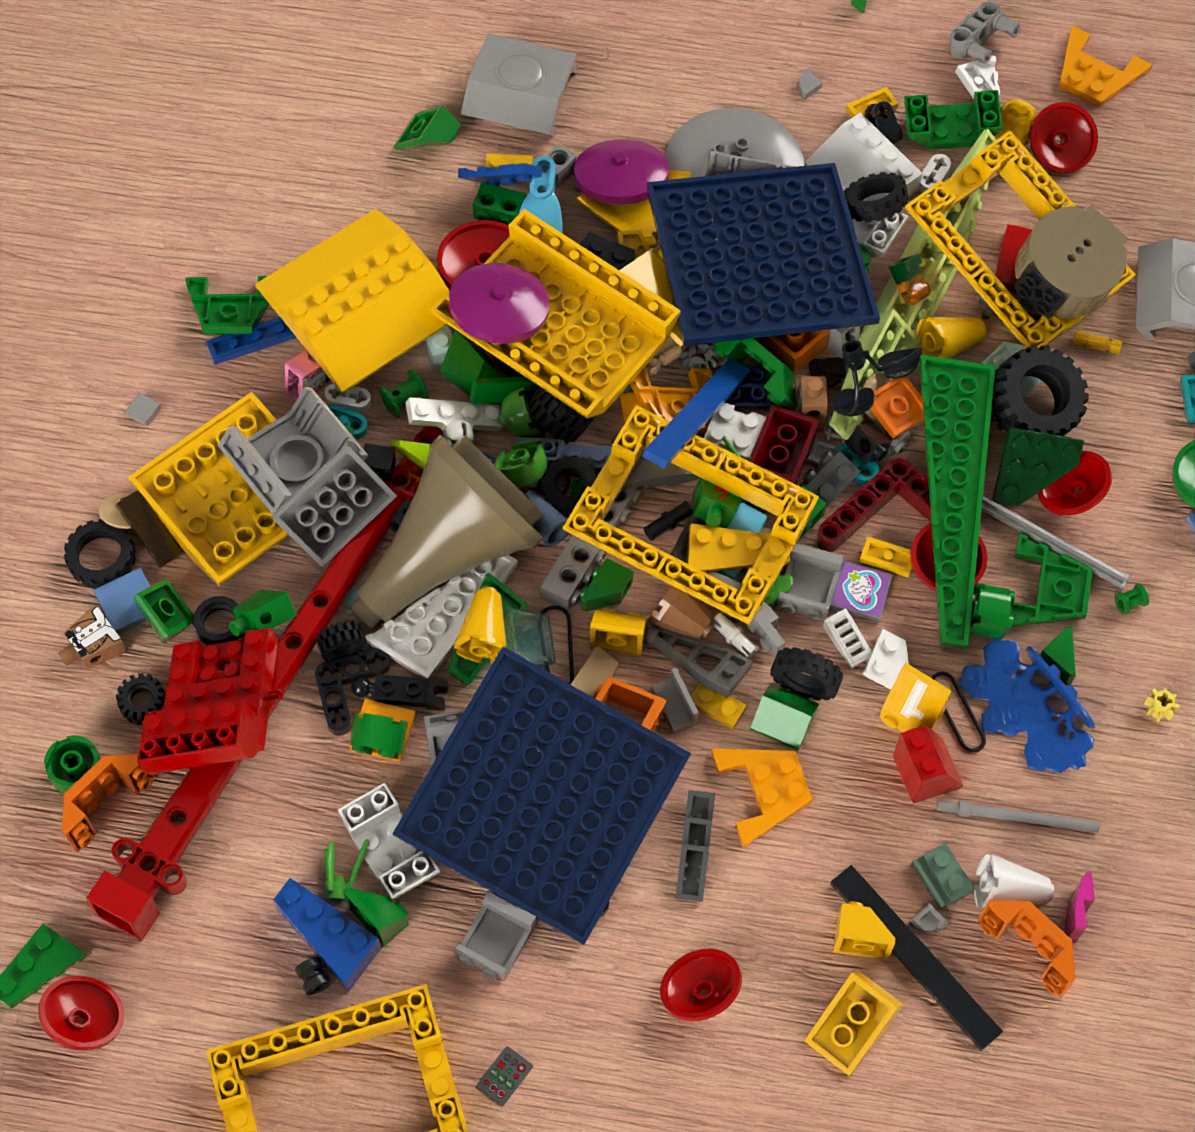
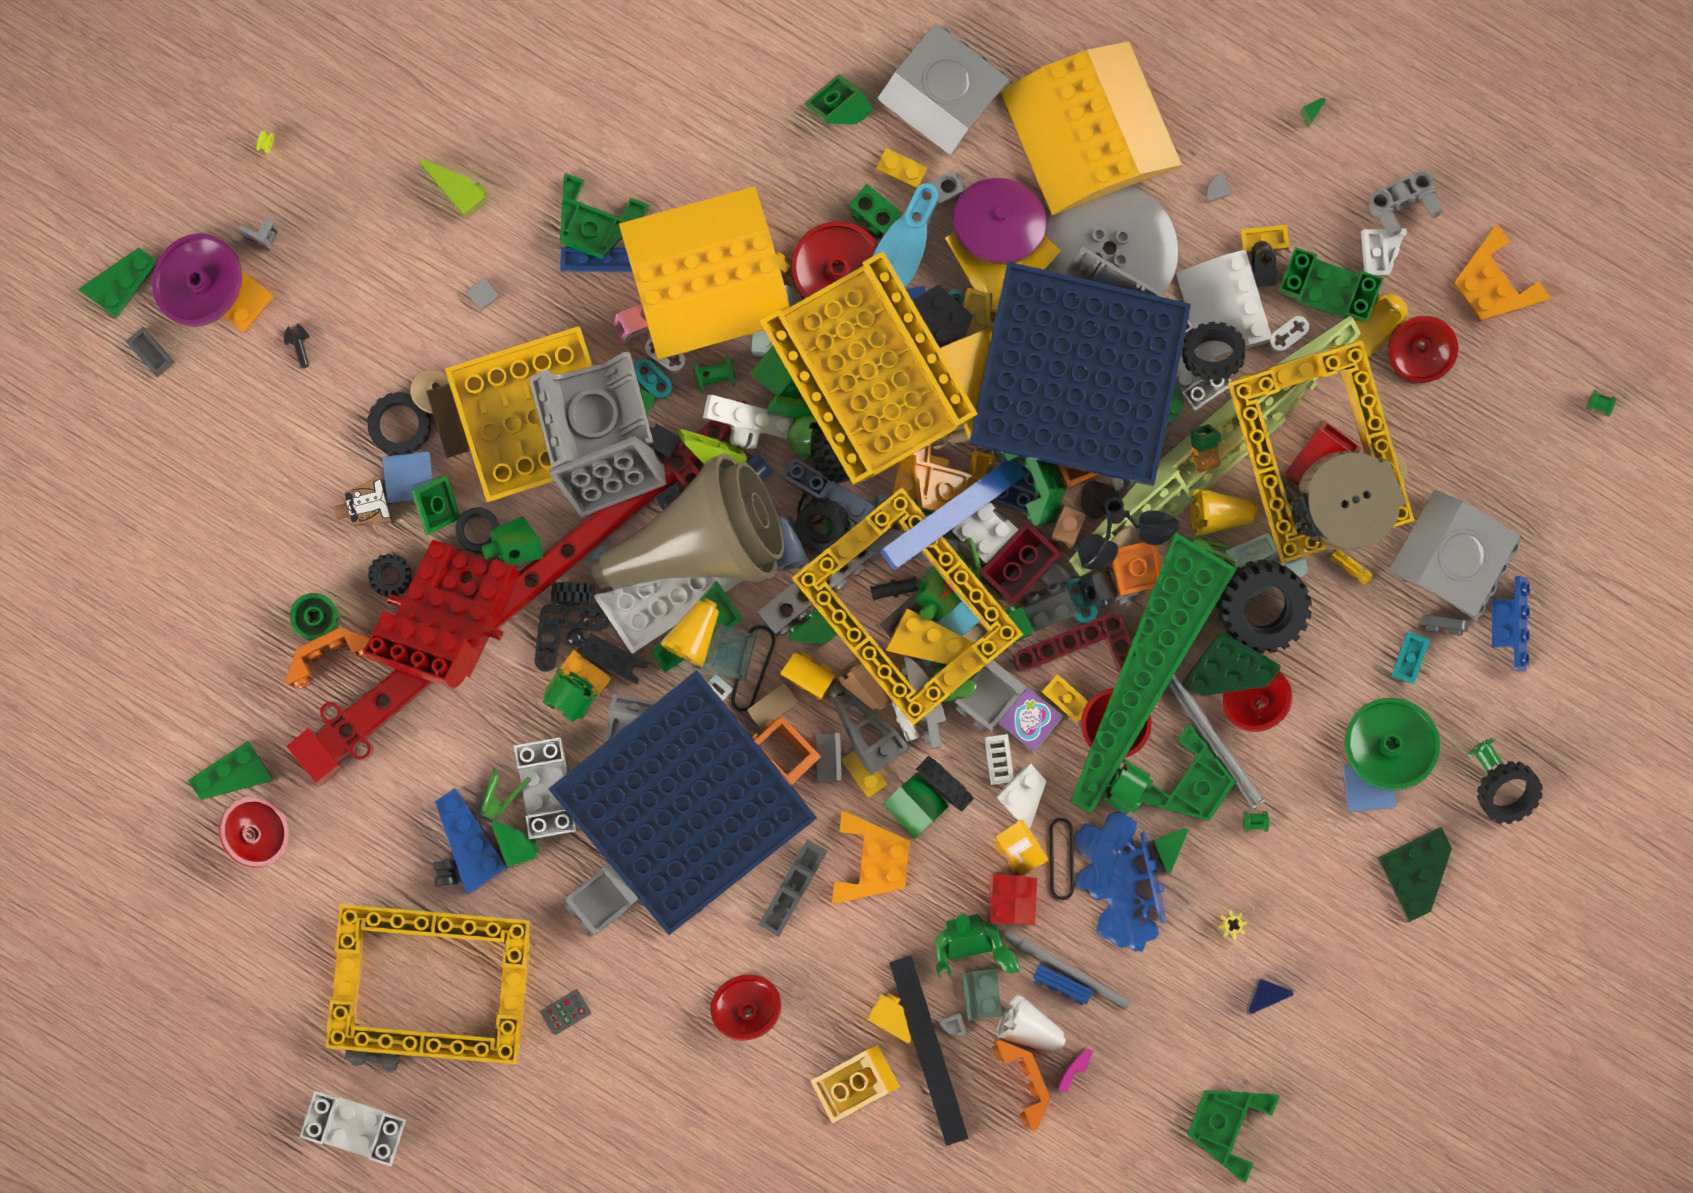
camera: 15 degrees right, 20 degrees up
(81, 324) = (458, 188): none -> lime slope
(498, 303) = (822, 339): magenta dish -> none
(503, 175) = (886, 186): blue wing -> none
(523, 464) = (786, 492): bright green cylinder -> none
(665, 73) = (1089, 126): none -> yellow slope
(905, 816) = (970, 937): none -> green torso
(1021, 832) = (1066, 986): none -> blue piece

